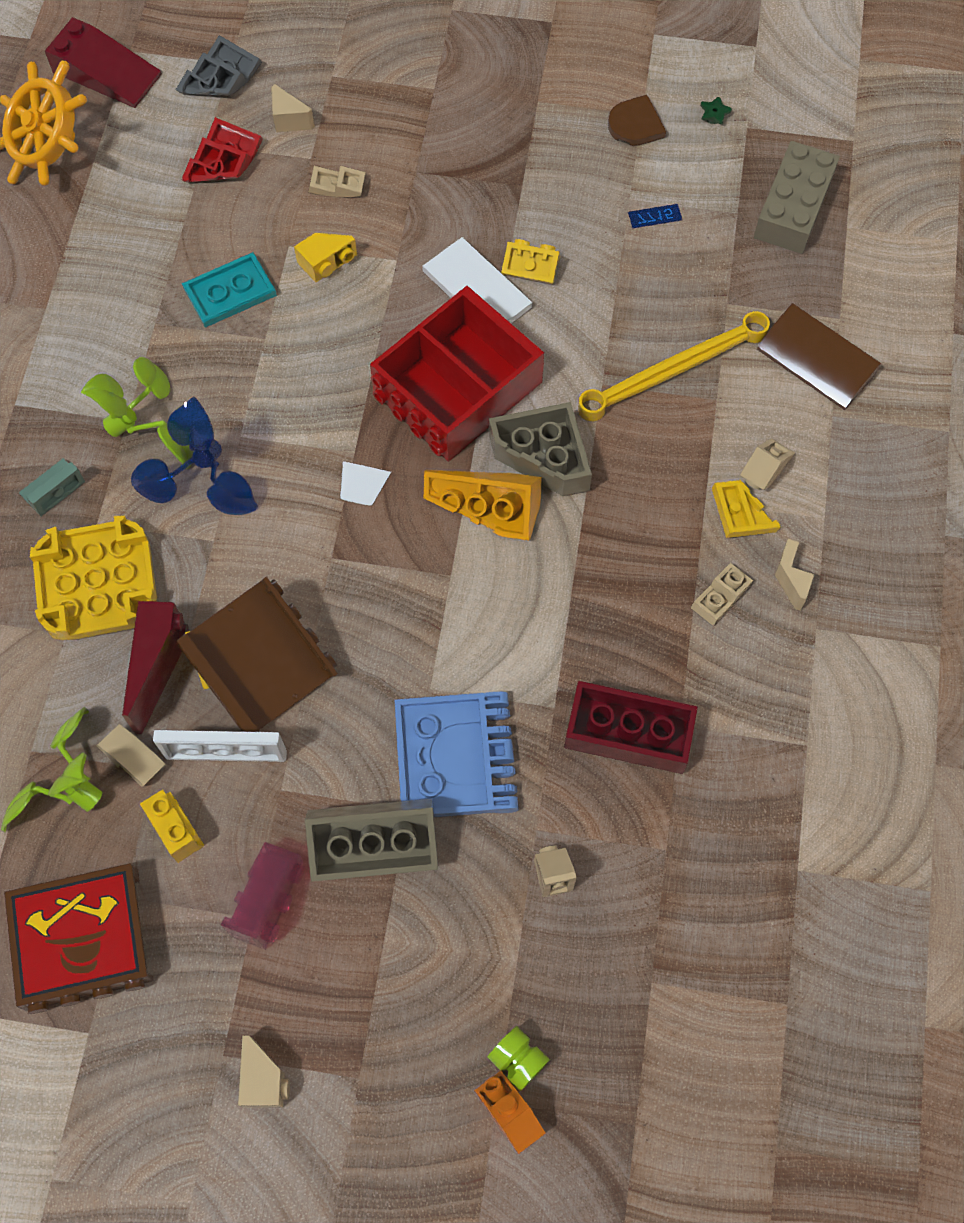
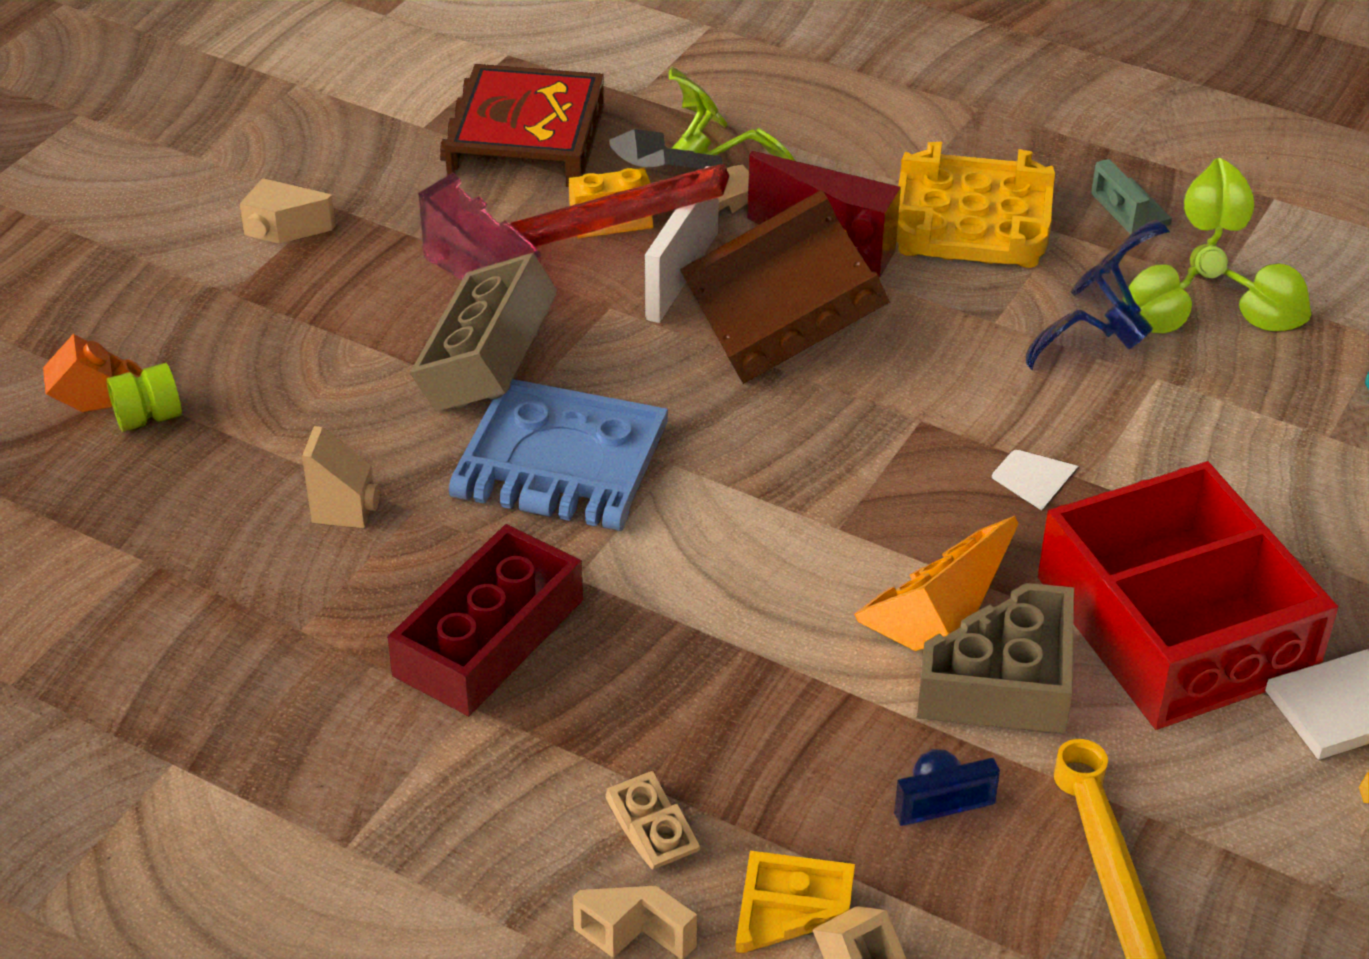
camera: 110 degrees right, 25 degrees down
(125, 794) = (649, 151): none -> dark grey slope
(209, 799) = (624, 206): none -> clear red tile
(639, 460) = (945, 787): none -> clear blue tile

